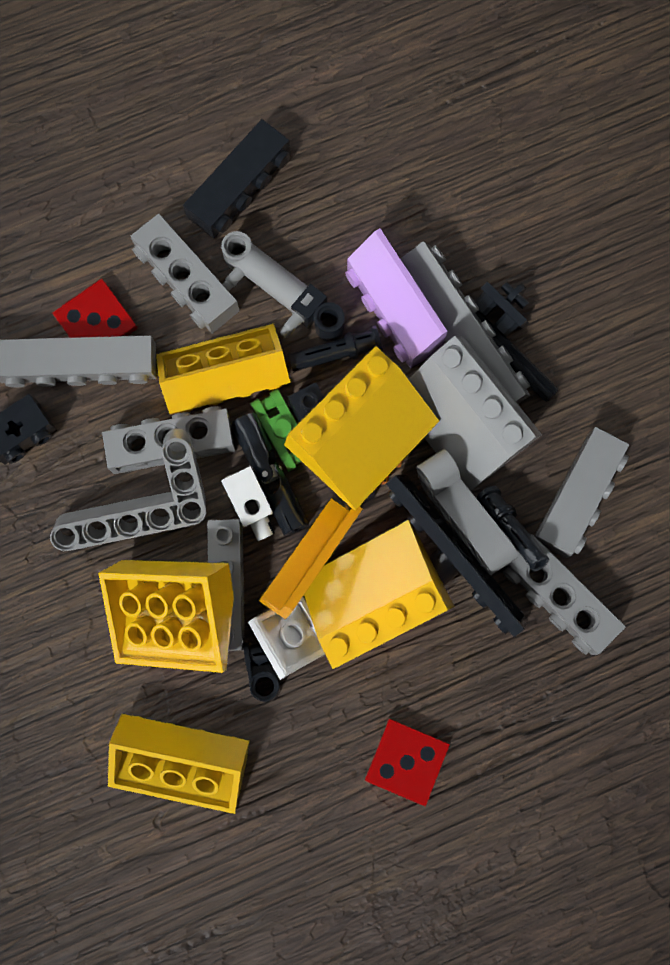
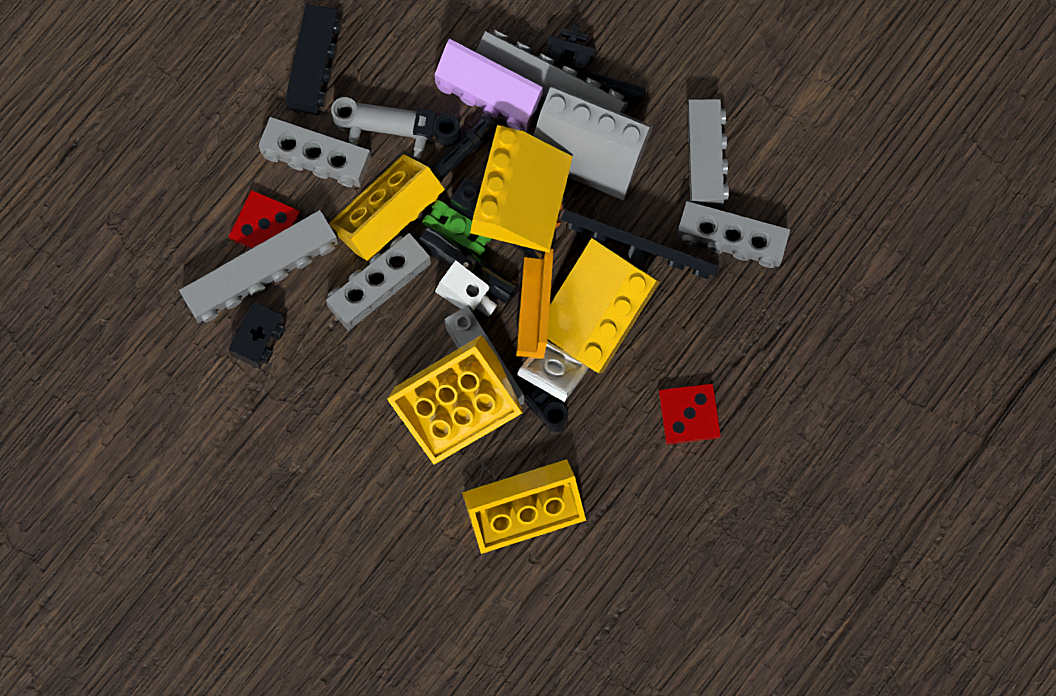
camera: 30 degrees left, 5 degrees down
(140, 508) = (390, 338): light grey beam -> none
(464, 512) = (627, 212): light grey beam -> none
(505, 518) = (660, 201): black pin -> none

